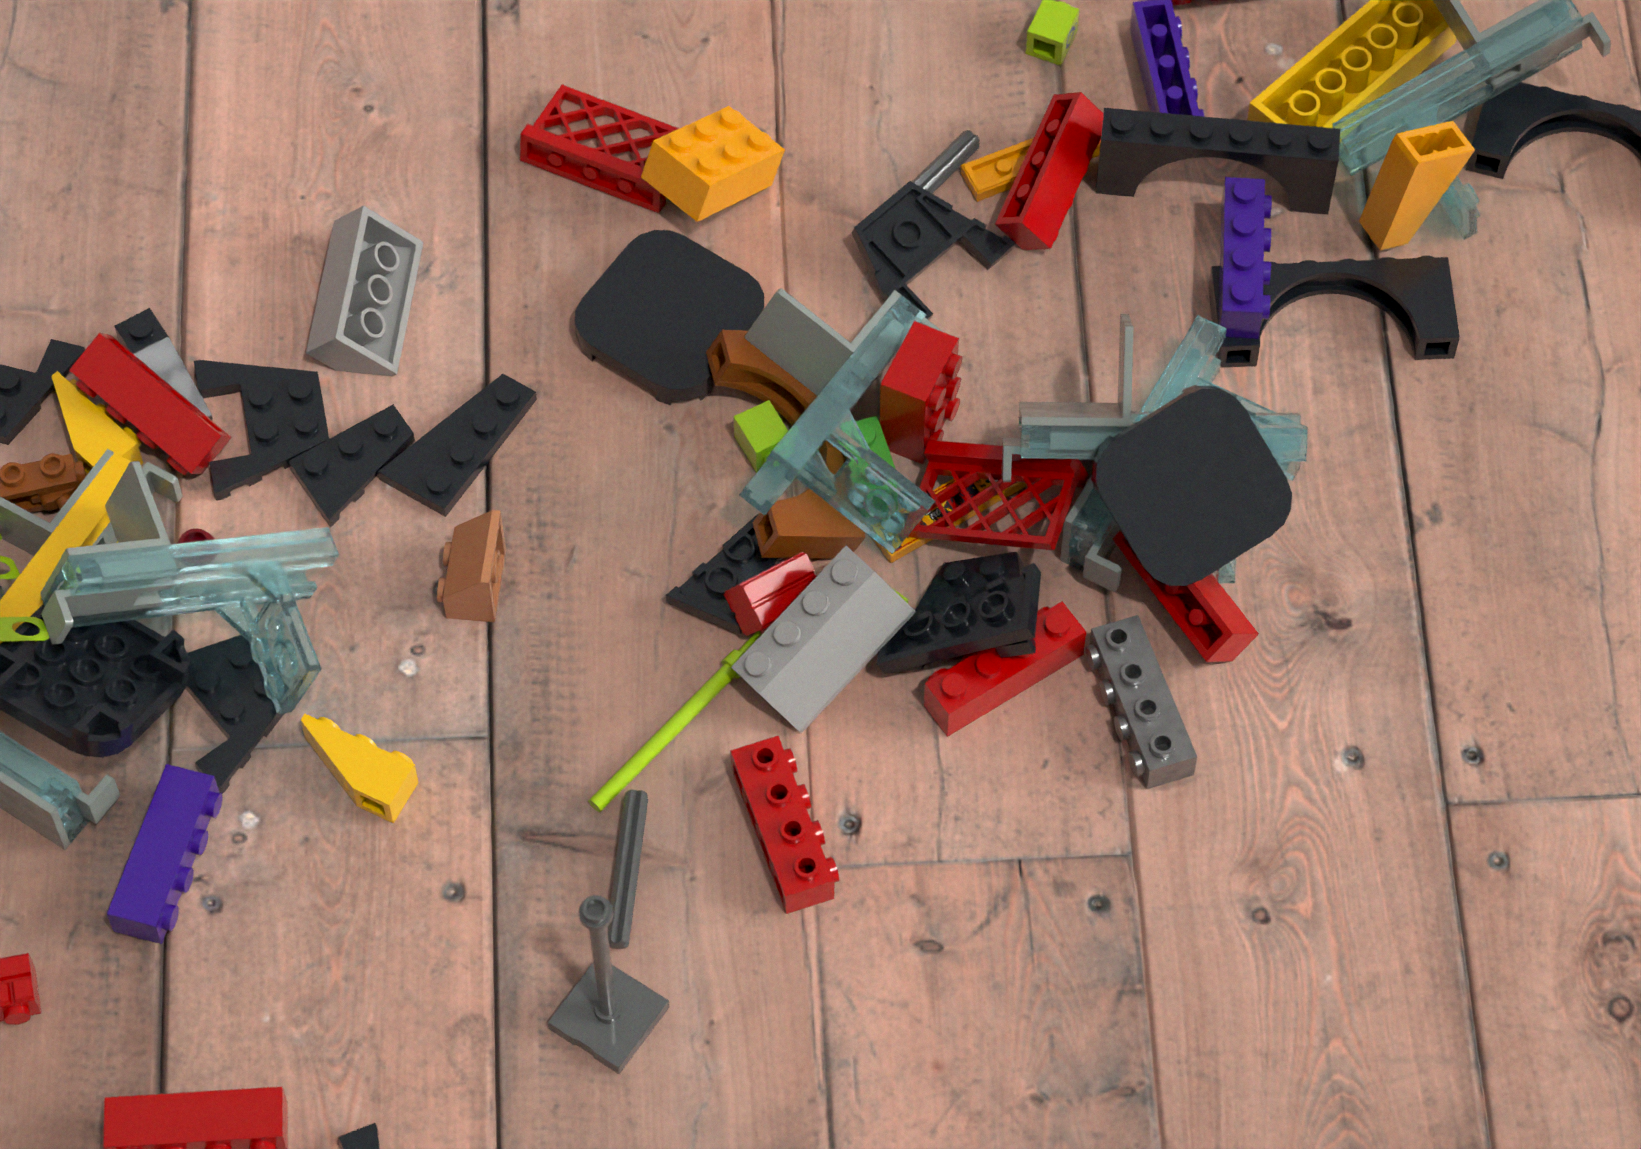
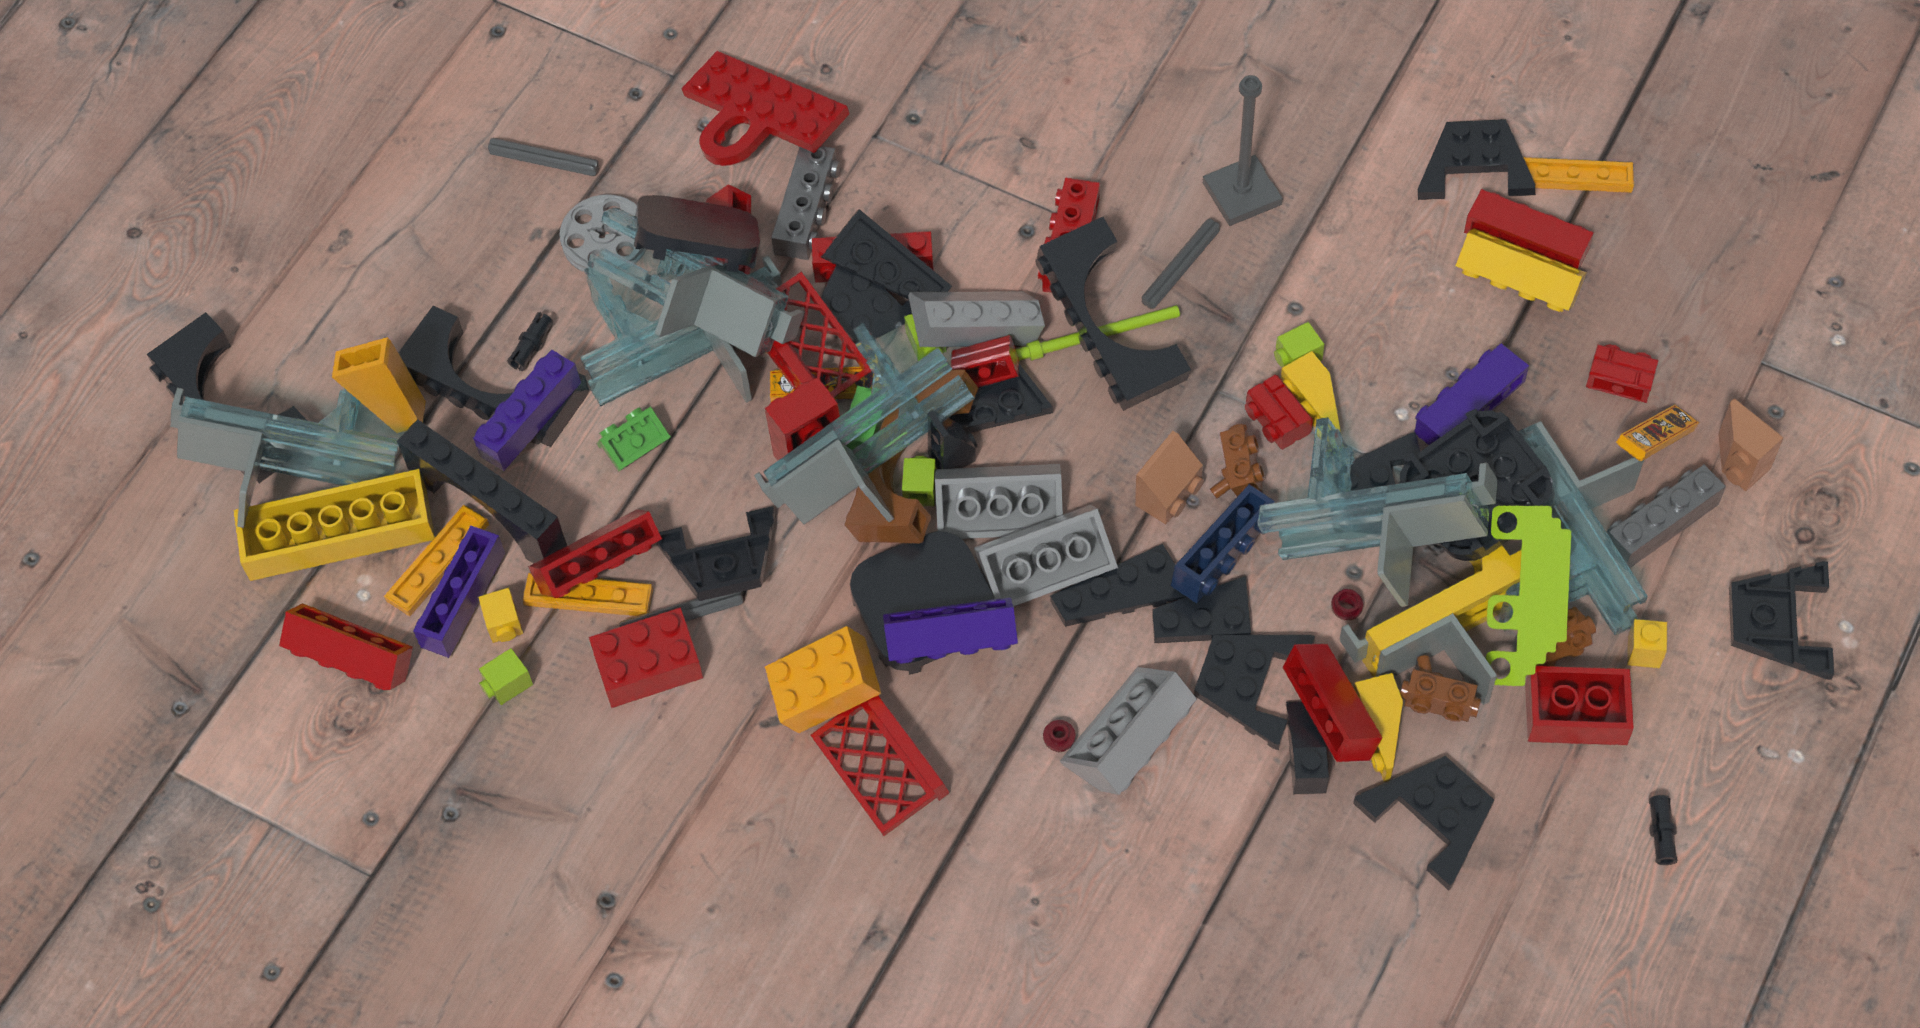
camera: 145 degrees left, 0 degrees up
(180, 1062) = (1521, 270): none -> yellow brick
(366, 519) = (1220, 546): none -> dark blue brick
(396, 723) = (1278, 412): none -> red brick
(402, 634) = (1241, 462): none -> dark orange brick
(412, 819) = (1298, 343): none -> lime brick
(437, 268) = (1059, 744): none -> dark red plate
(566, 421) = (1047, 556): none -> light grey slope
(600, 677) = (1130, 372): none -> black arch
(607, 263) = (950, 630): none -> dark purple brick
(660, 463) = (996, 499): none -> light grey slope
(745, 452) = (949, 442): none -> black slope
(921, 113) = (646, 657): none -> red brick
(1103, 332) = (634, 438): none -> bright green bracket
(1107, 81) = (500, 615): none -> yellow brick
(1225, 100) = (431, 564): none -> light orange tile
(1285, 793) = (763, 102): none -> red plate
(1326, 377) = (530, 341): none -> black pin
(1342, 559) = (591, 231): none -> light grey wedge
(1506, 603) = (543, 156): none -> dark grey axle

